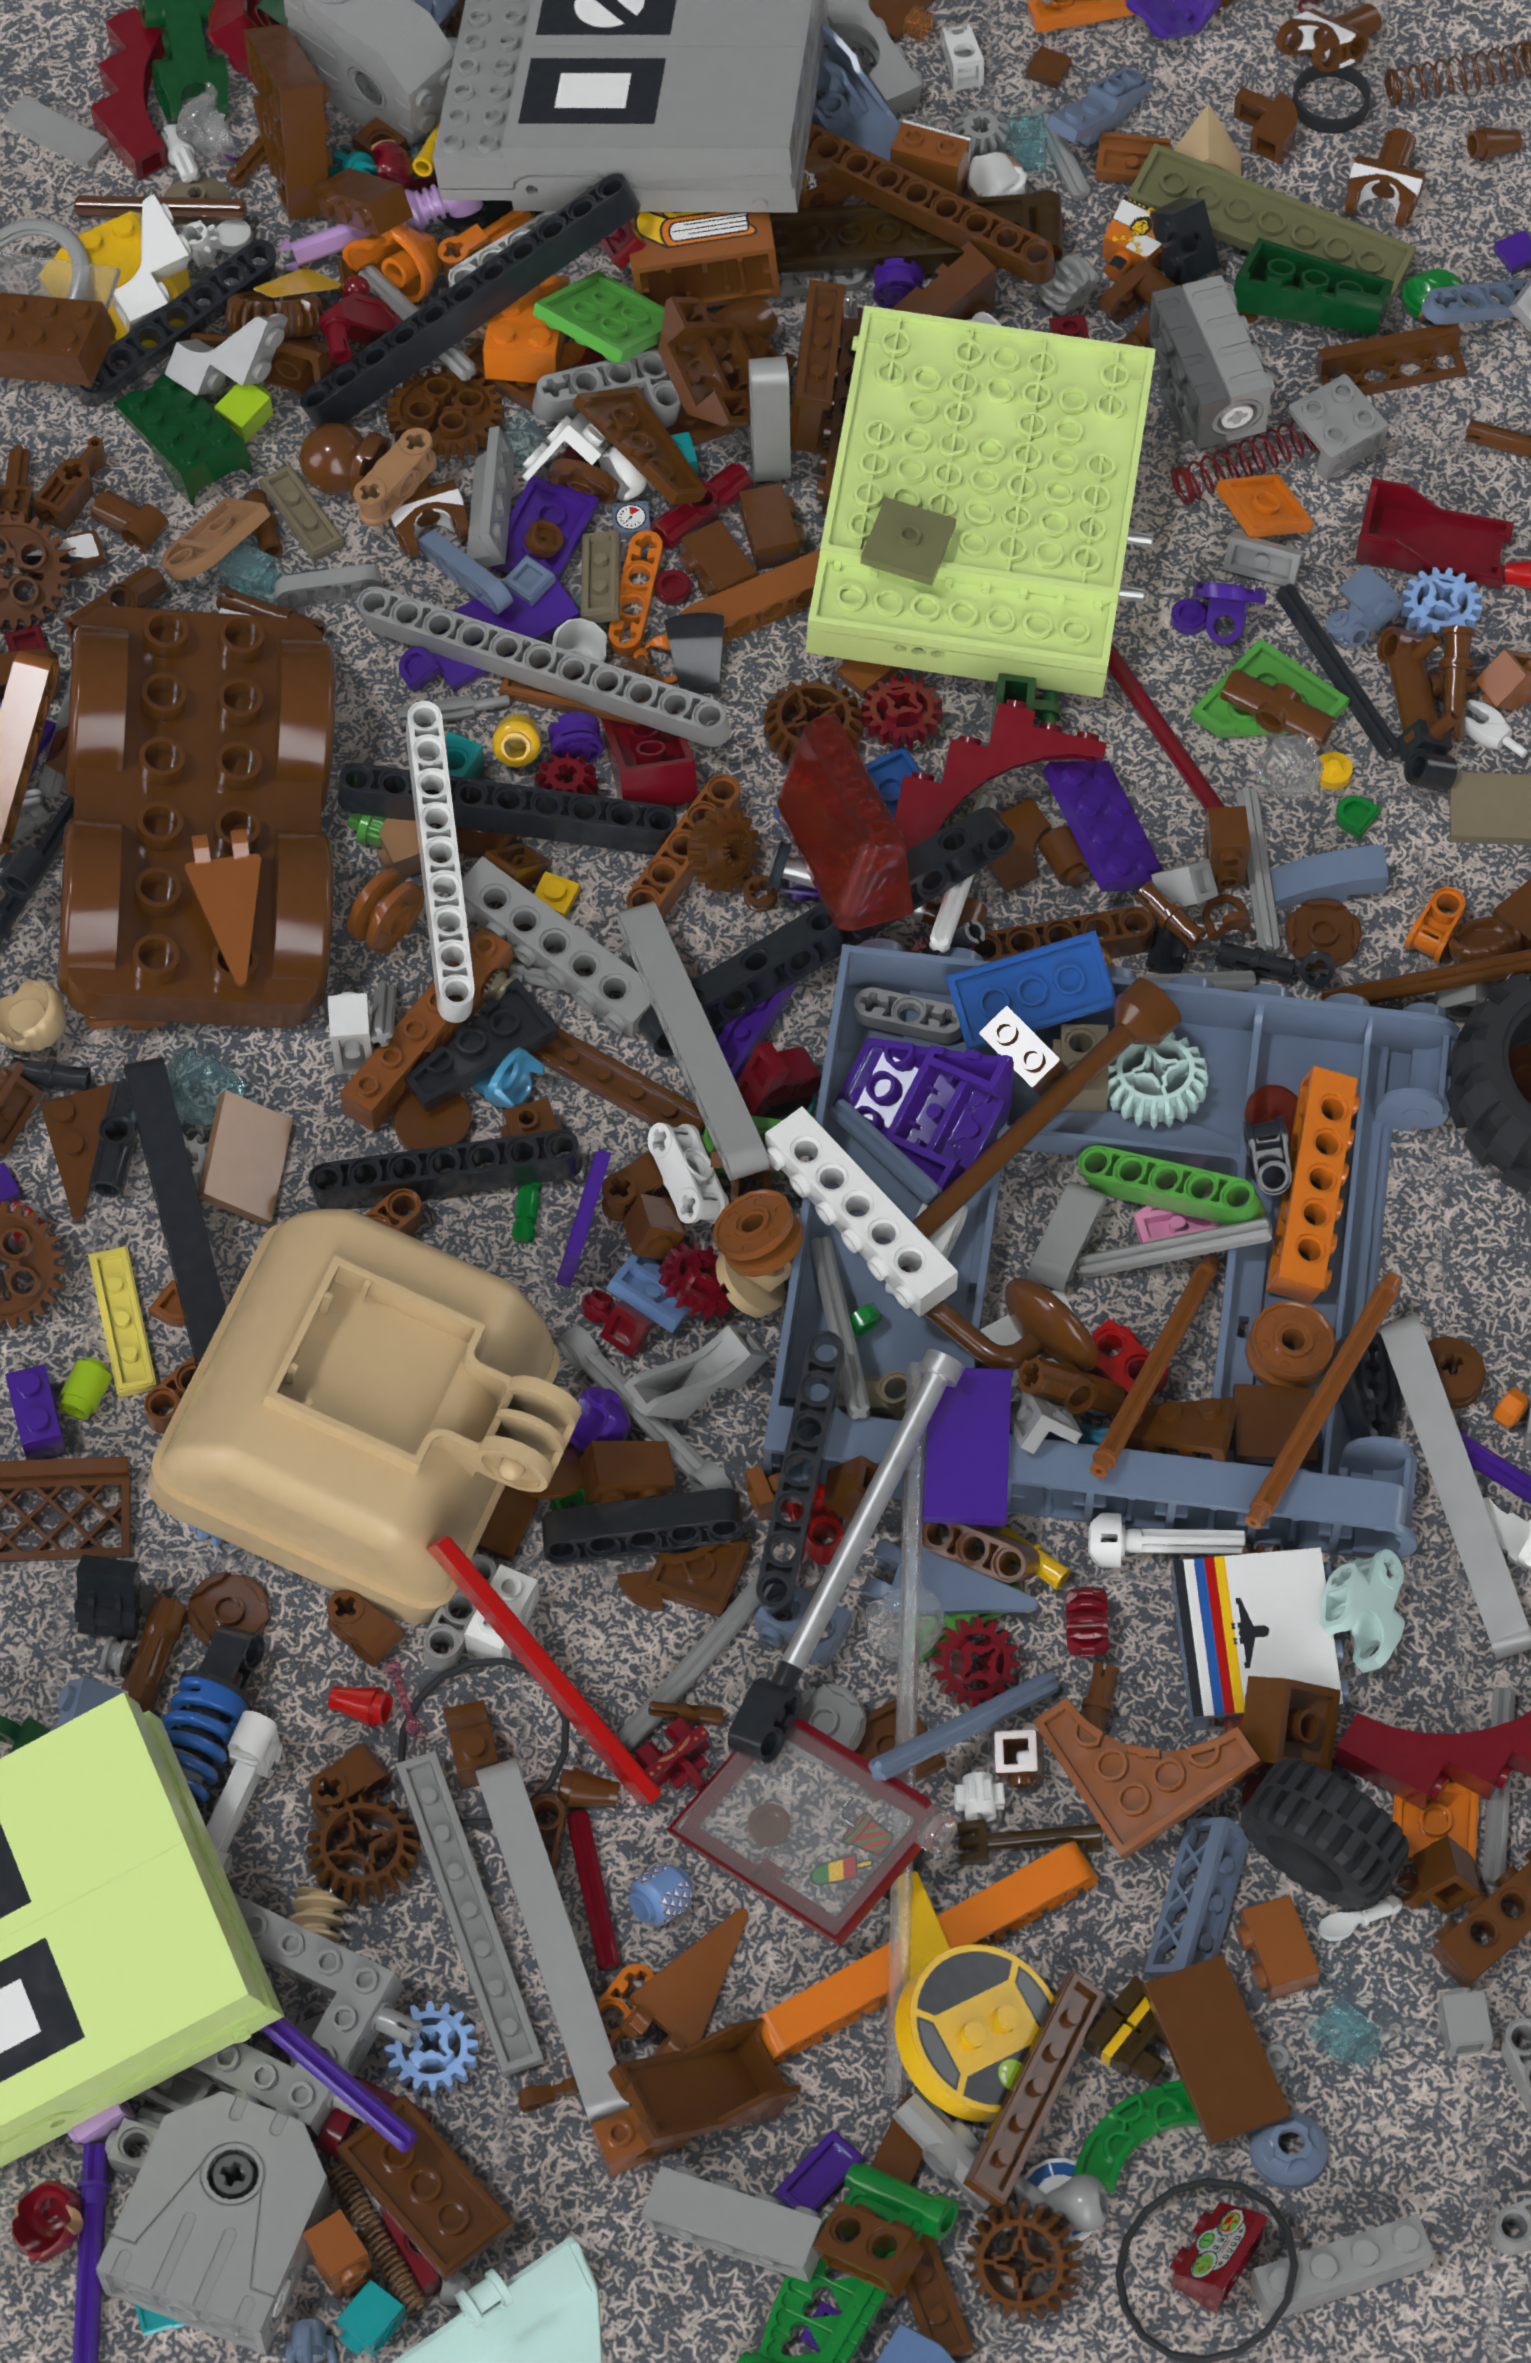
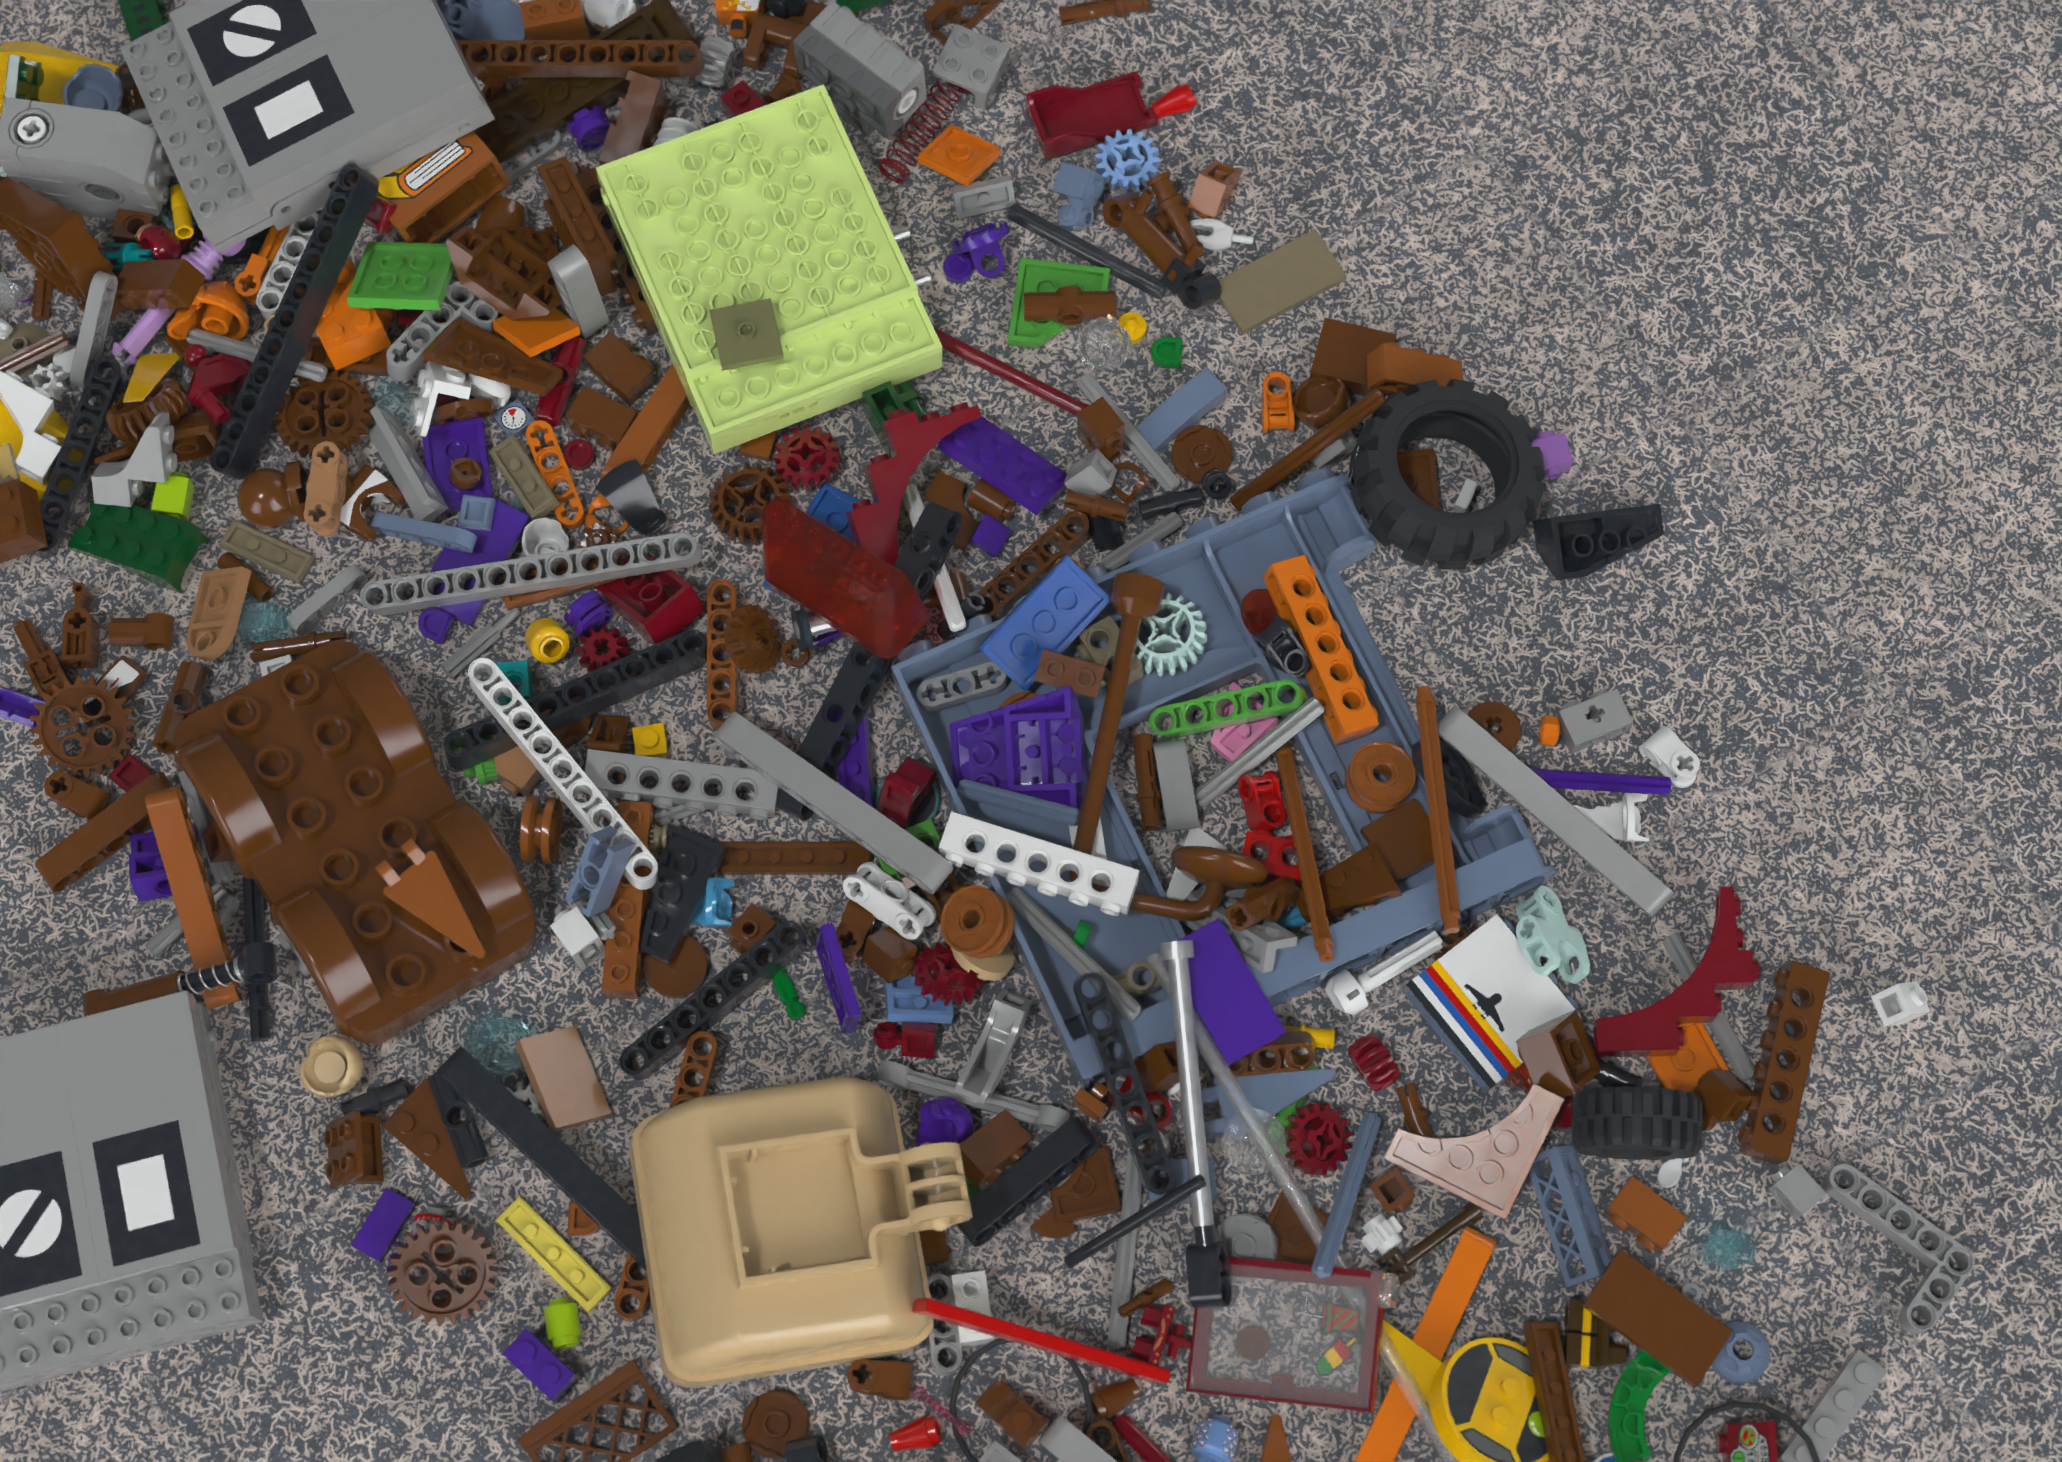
camera: 30 degrees left, 10 degrees up
(272, 213) = (93, 326): none -> light grey beam
(410, 968) = (599, 871): none -> sand blue piece
(709, 442) = (539, 333): none -> orange tile
(724, 1623) = (1135, 1221): none -> black piece
(1031, 1227) = (1148, 793): none -> reddish brown pin
(1040, 889) = (989, 535): none -> dark purple tile
(1151, 1296) = (1262, 799): none -> red piece

